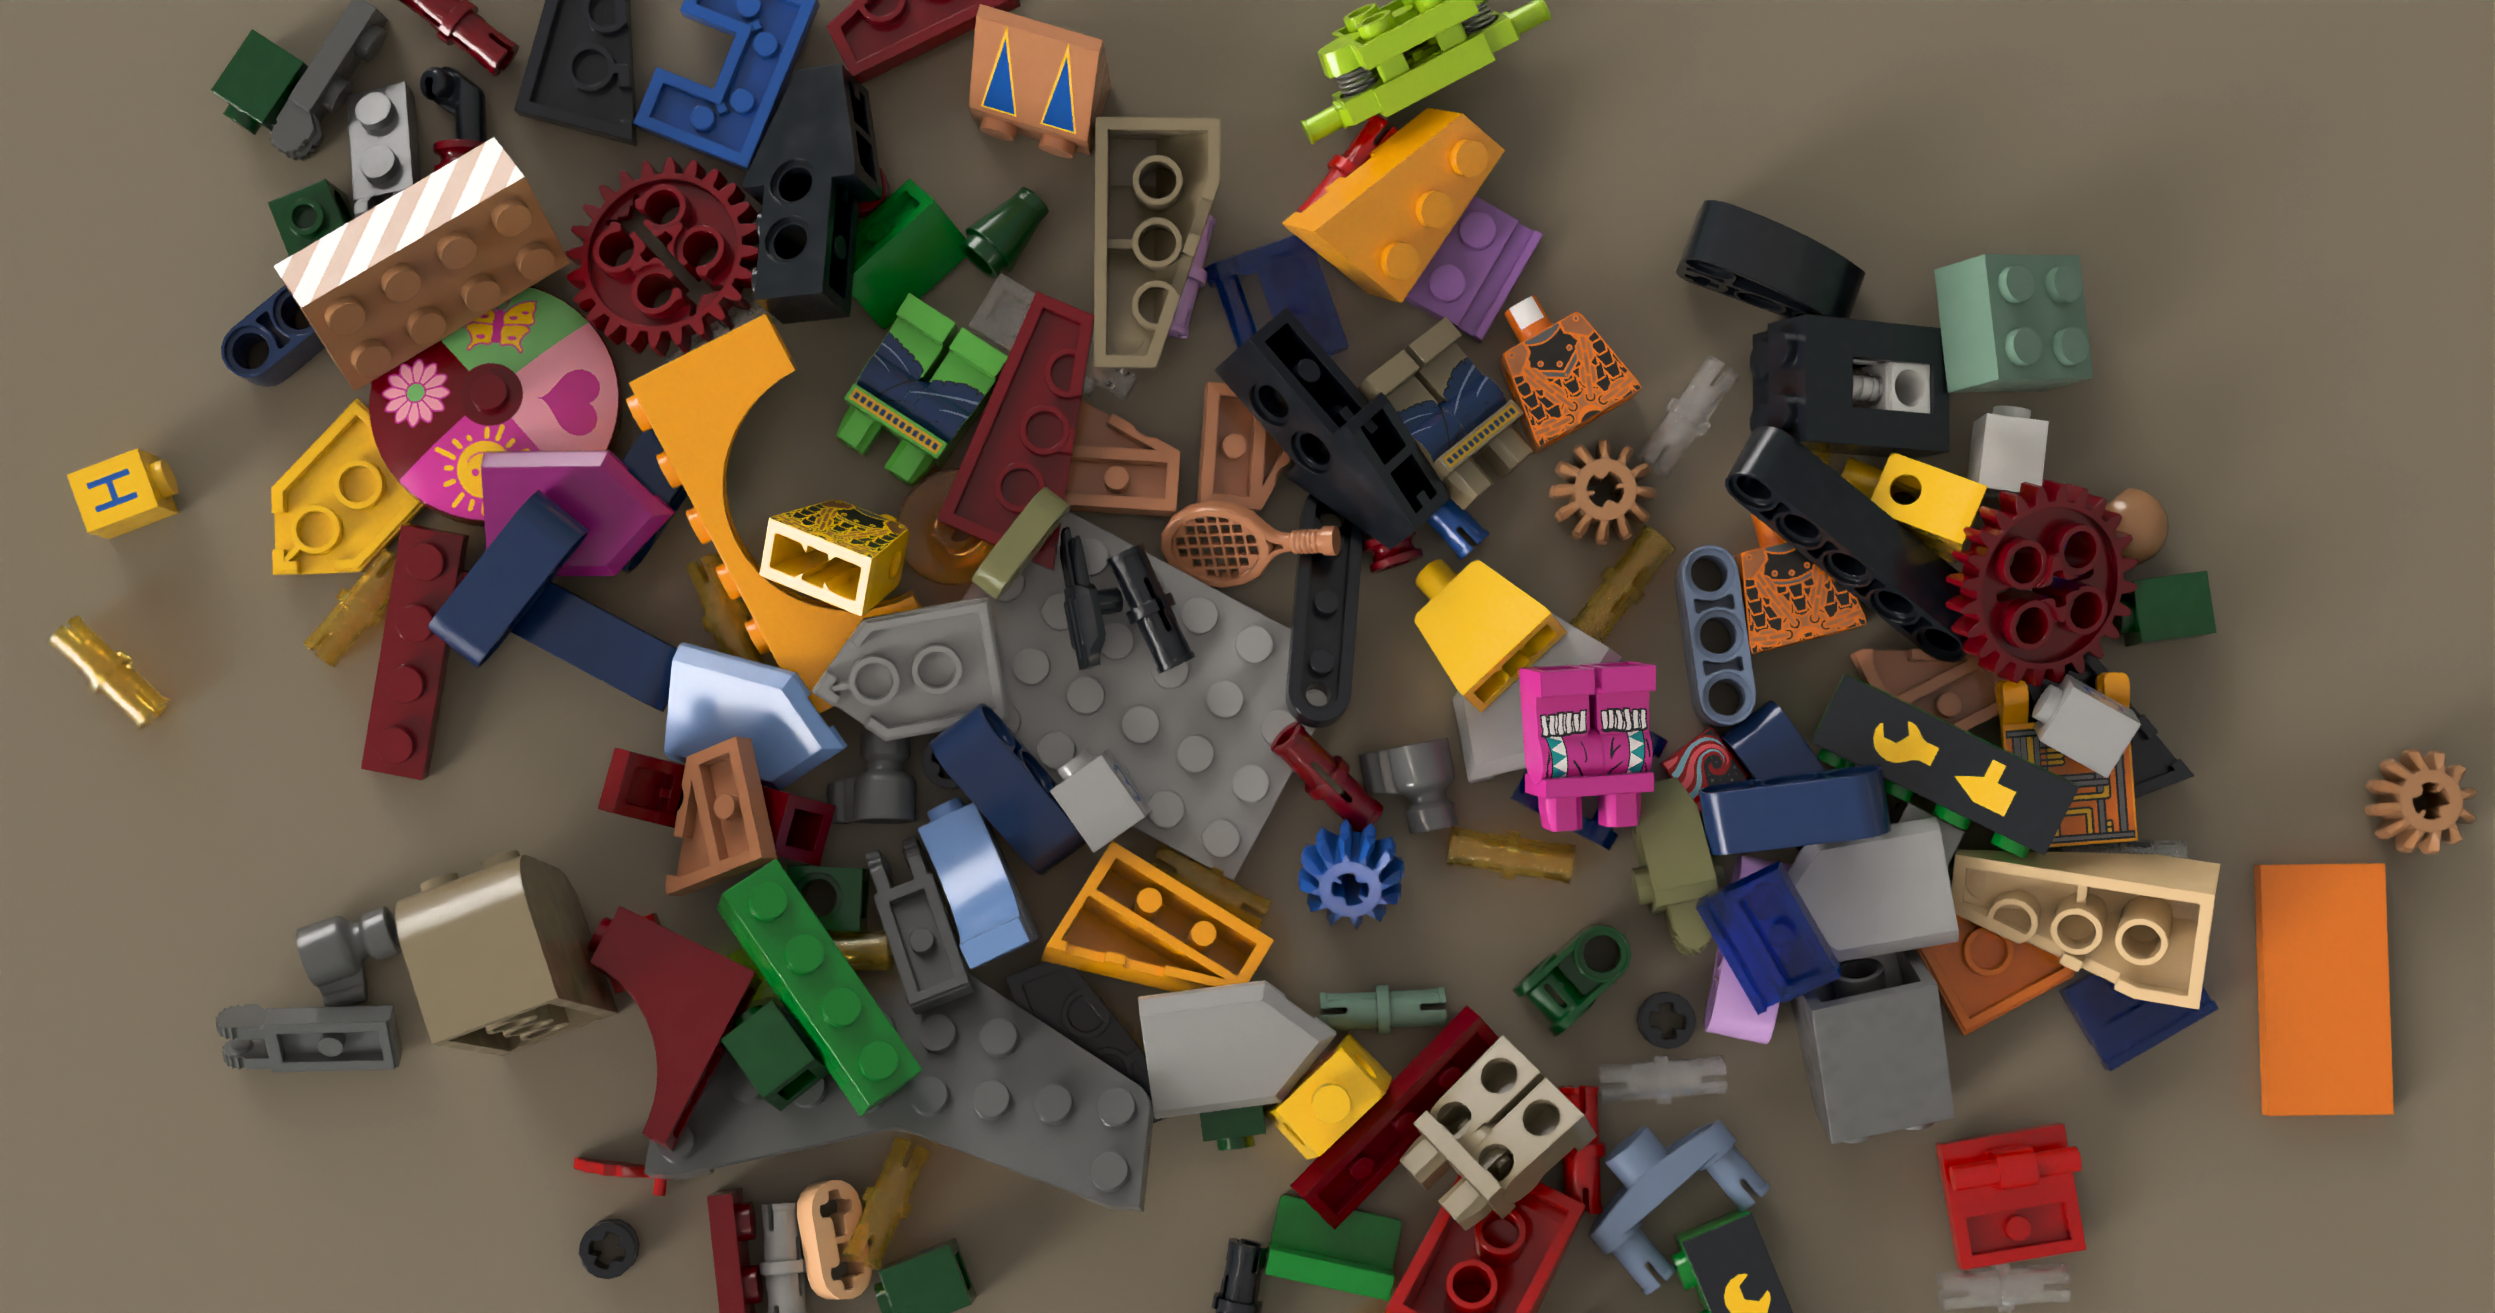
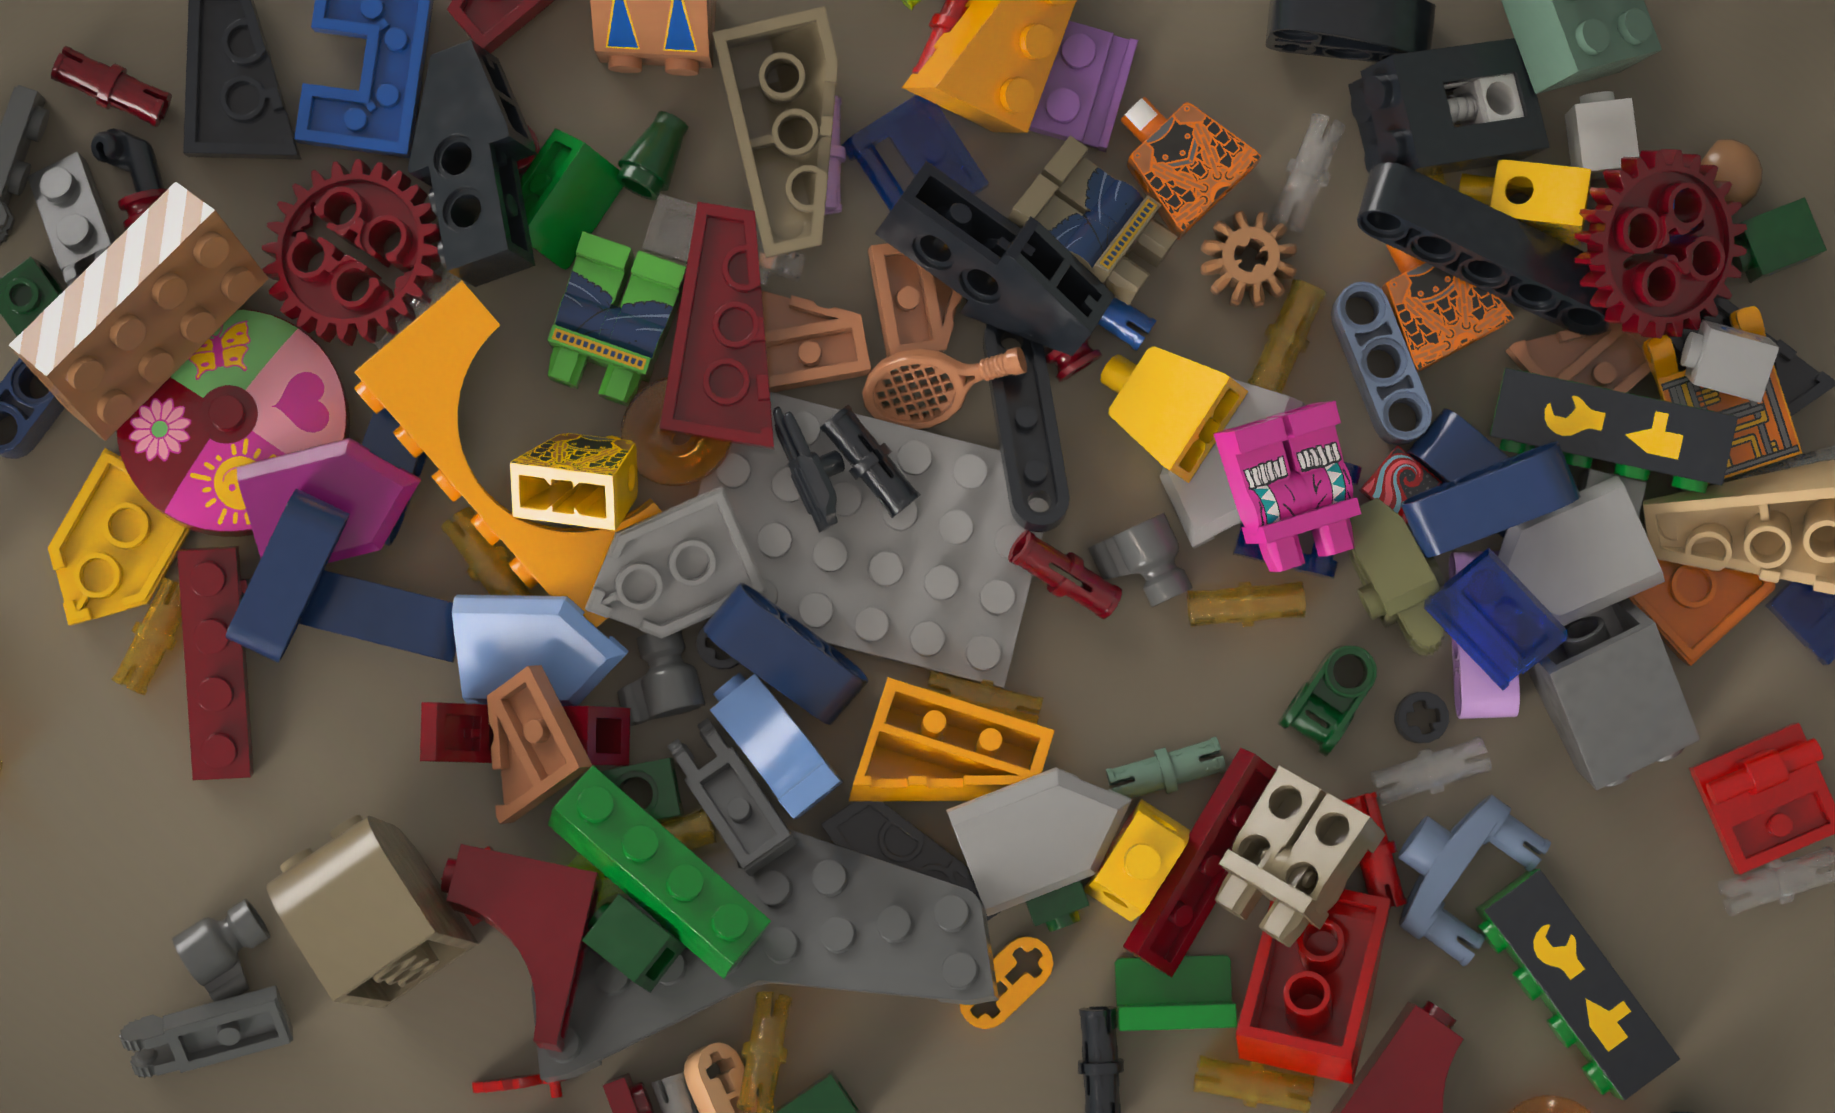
camera: 15 degrees left, 0 degrees up
(1021, 543) = (741, 430): olive beam -> none
(1099, 798) = (866, 642): light grey brick -> none
(1168, 1203) = (1017, 991): none -> light orange beam
(1370, 860) = (1092, 671): blue gear -> none

